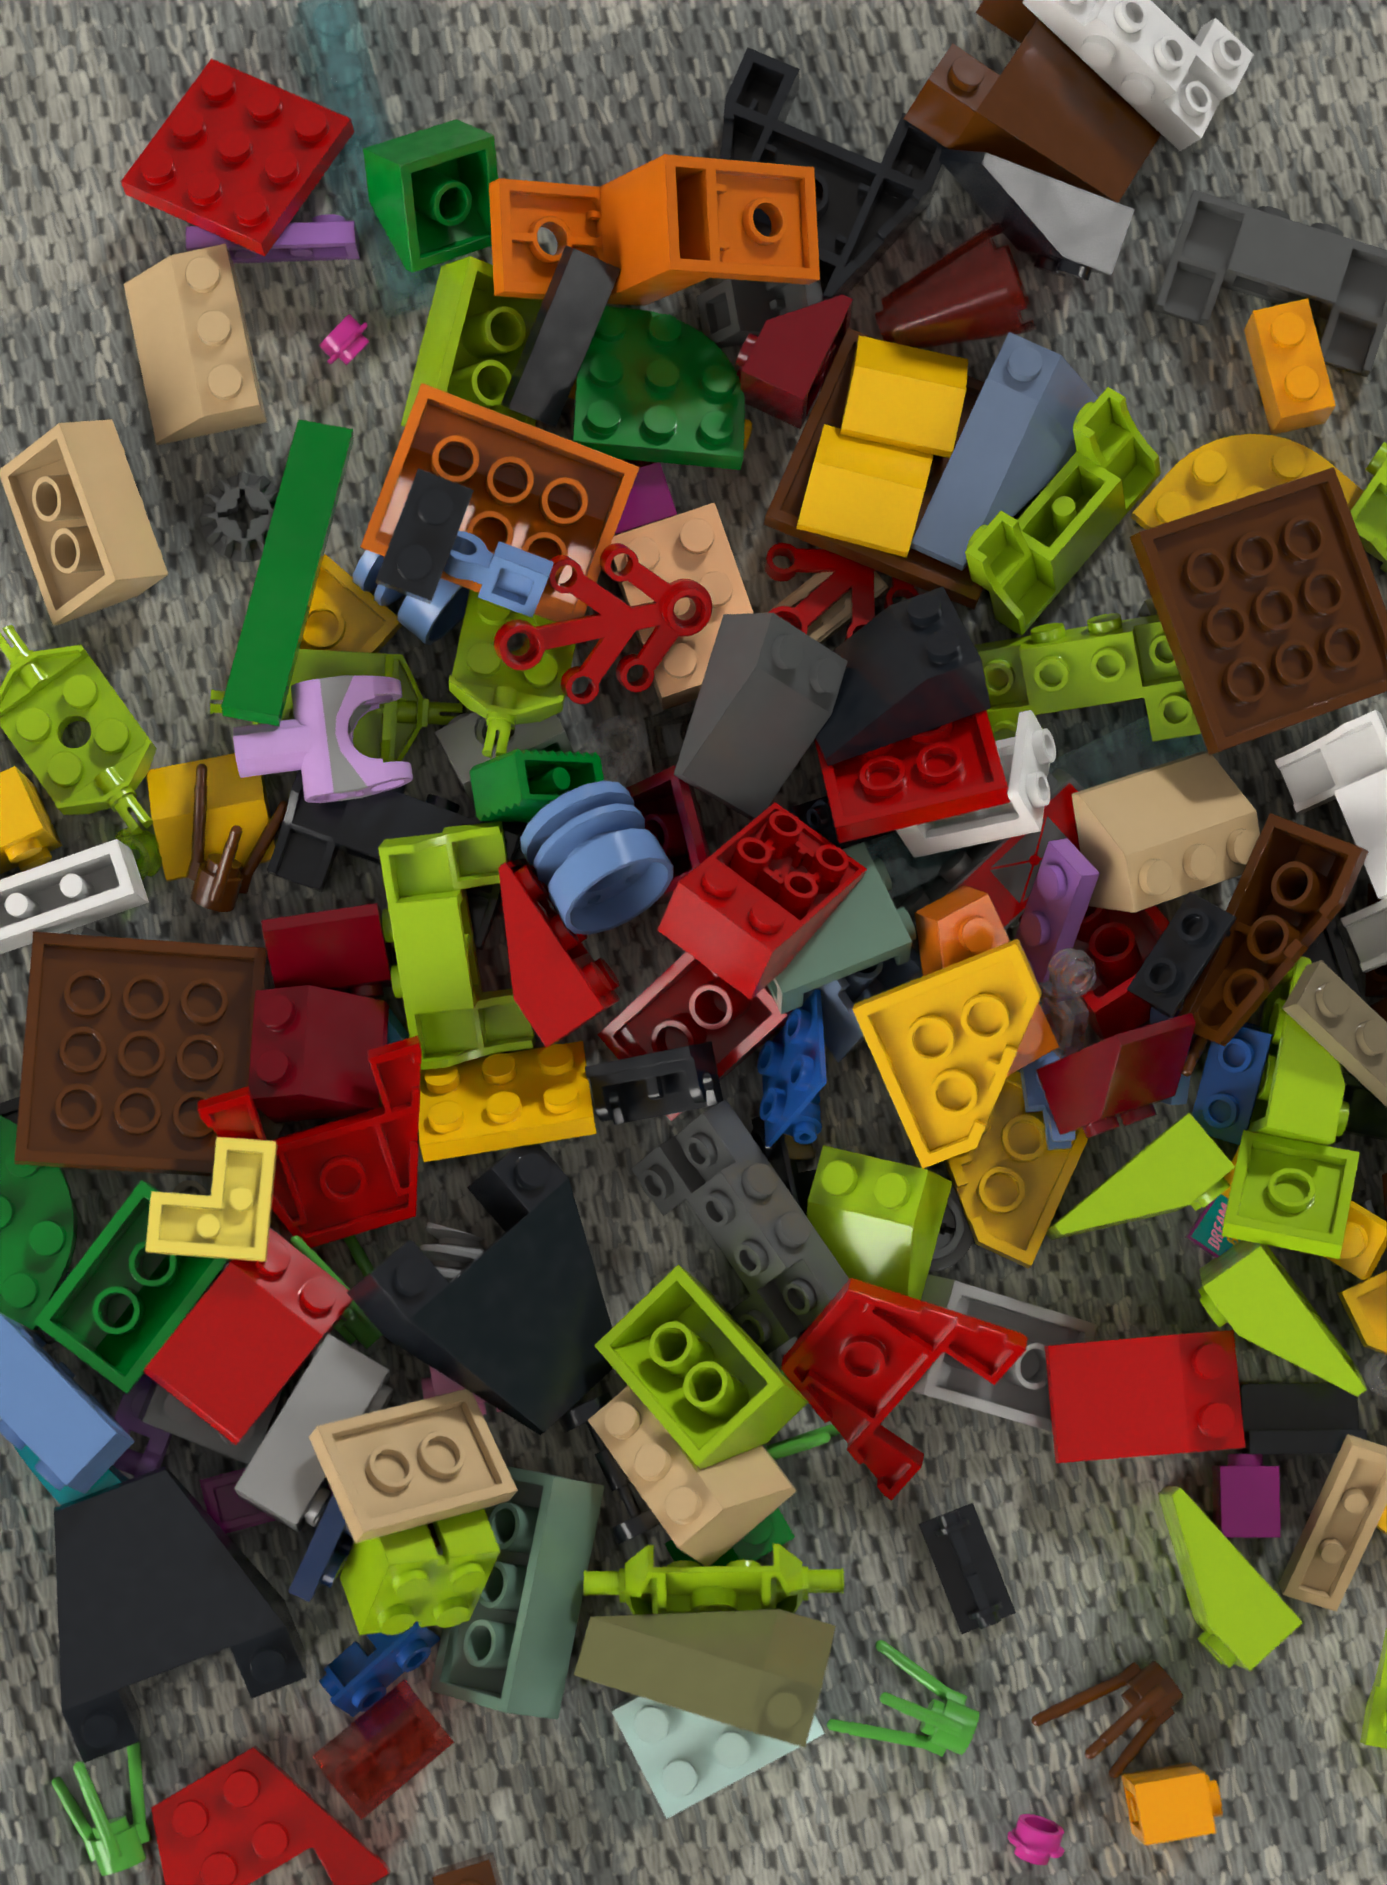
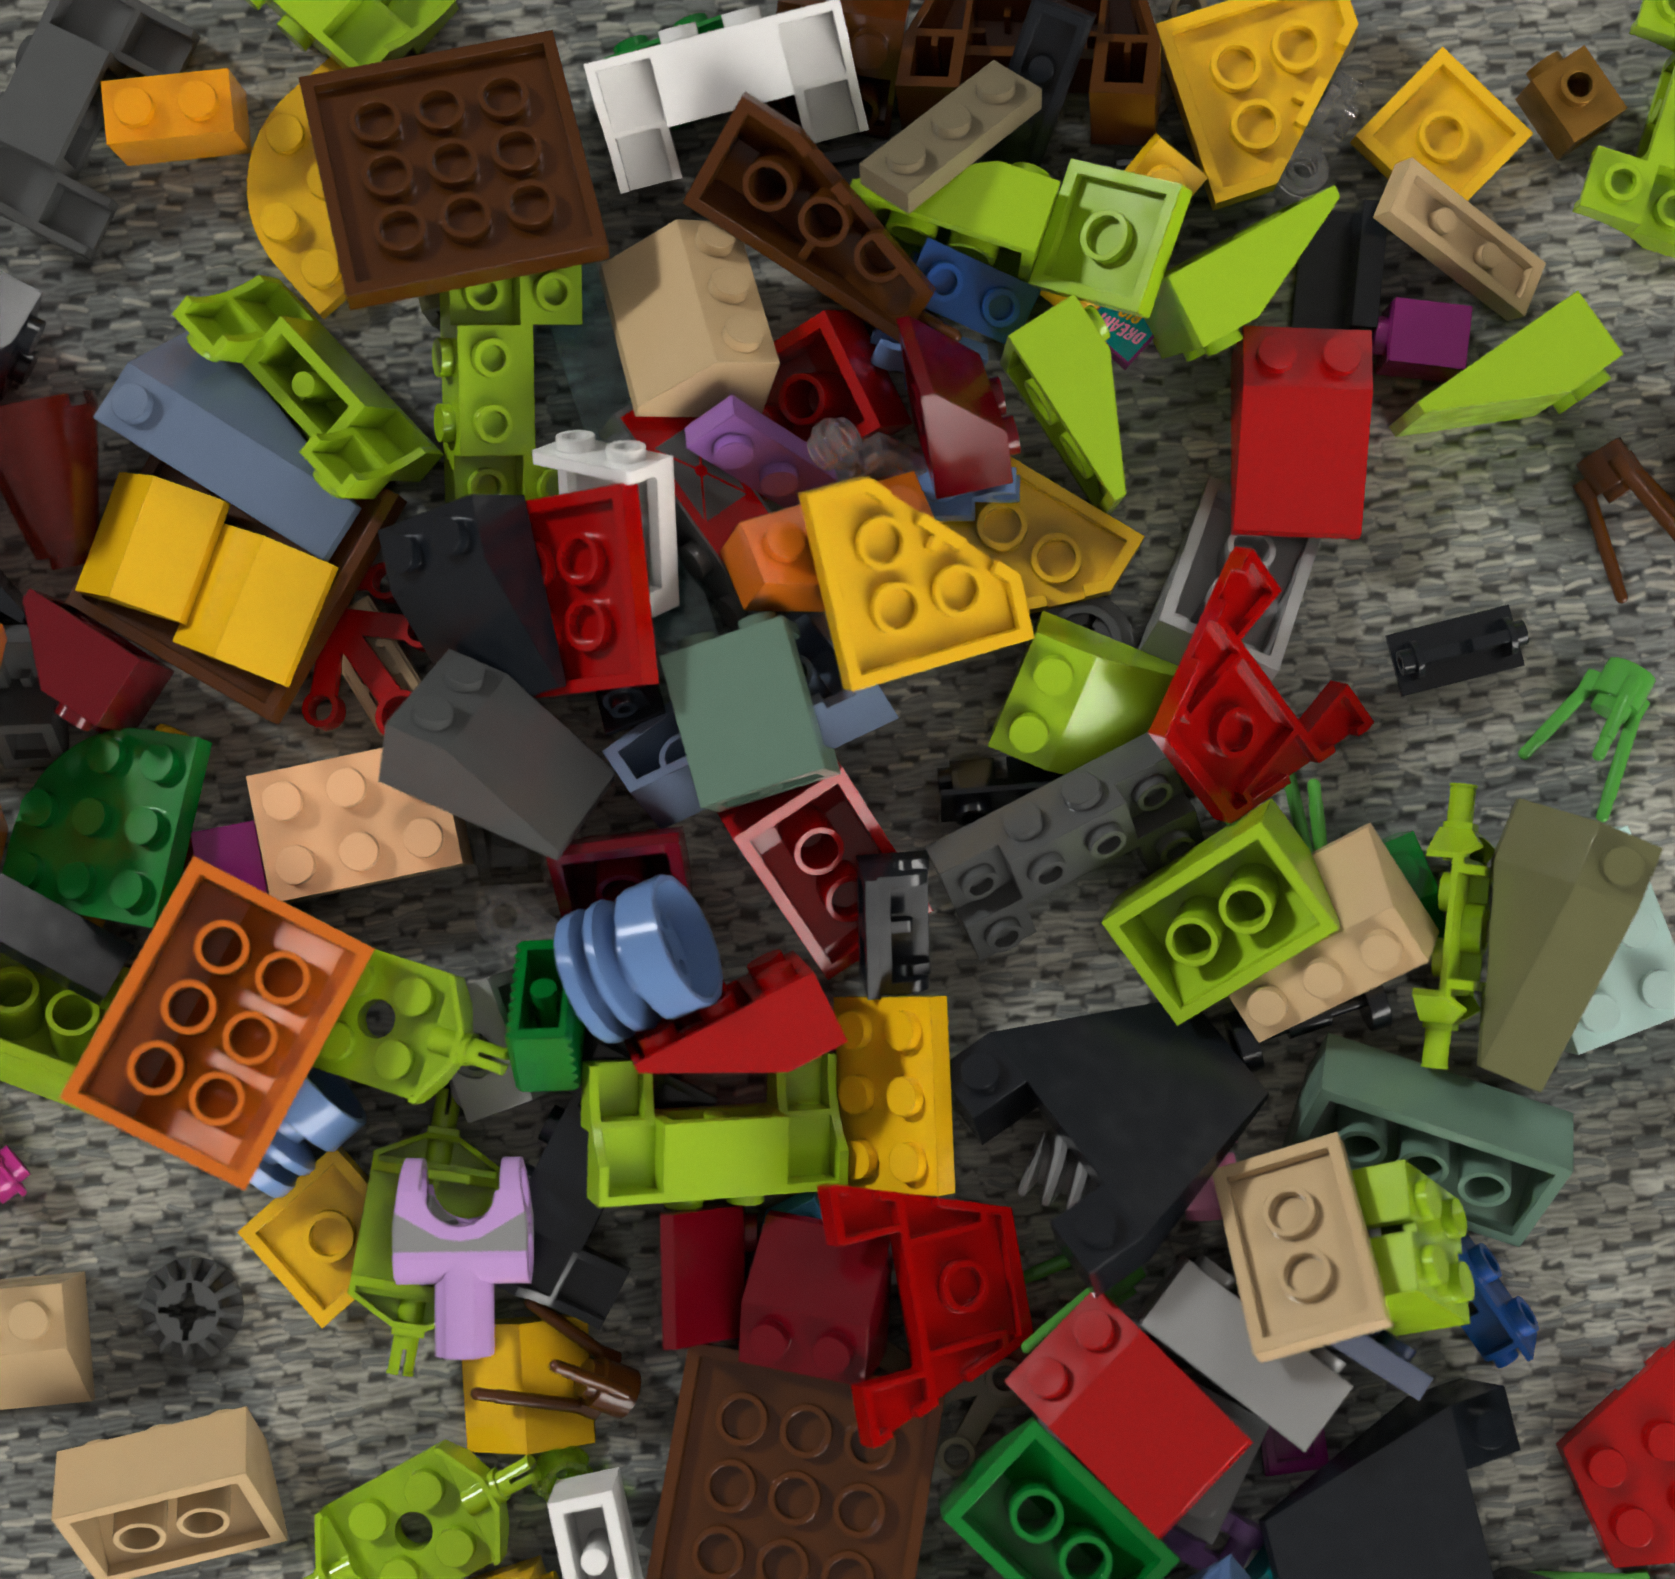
camera: 85 degrees left, 5 degrees up
(231, 1220) = (1004, 1422): light yellow plate -> none
(287, 573) = (265, 1272): green tile -> none
(383, 1749) = (1586, 1308): clear red brick -> none
(424, 536) = (241, 1116): black brick -> none
(507, 576) = (301, 1024): medium blue plate -> none
(612, 624) = (373, 909): red plant -> none
(759, 899) = (714, 780): red slope -> none
(794, 1074) = (907, 767): blue hinge -> none
(1181, 954) = (830, 319): black hinge -> none

